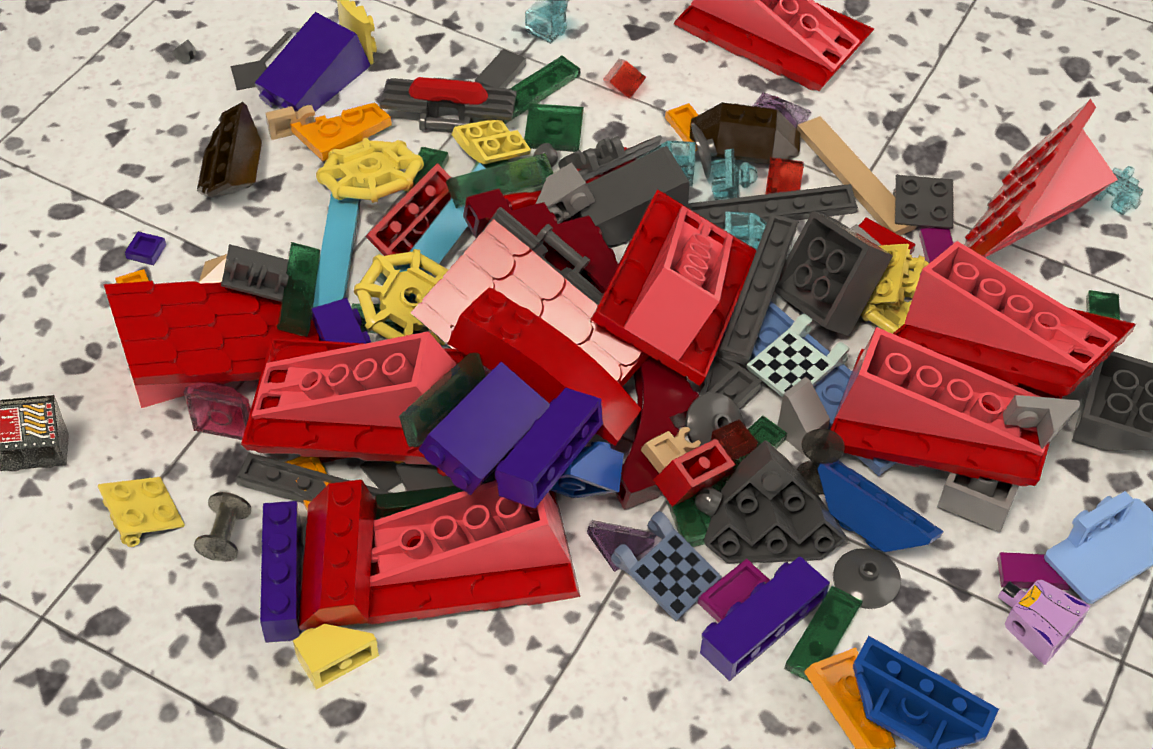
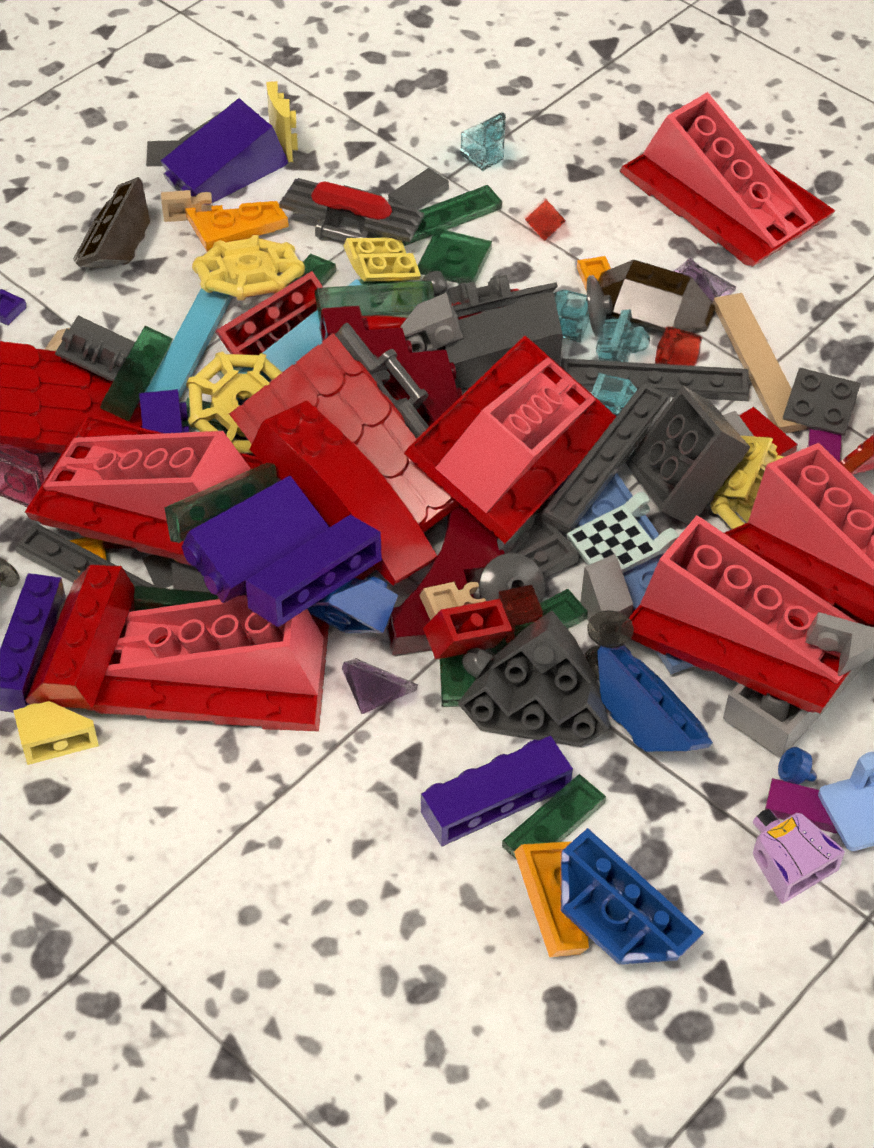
camera: 15 degrees right, 0 degrees up
(184, 52) = (105, 119): dark grey hinge -> none
(670, 571) = (416, 726): sand blue flag -> none
(730, 589) = (473, 754): magenta tile -> none
(874, 589) = (620, 787): dark grey dish -> none
(1017, 537) = (796, 766): none -> blue tile

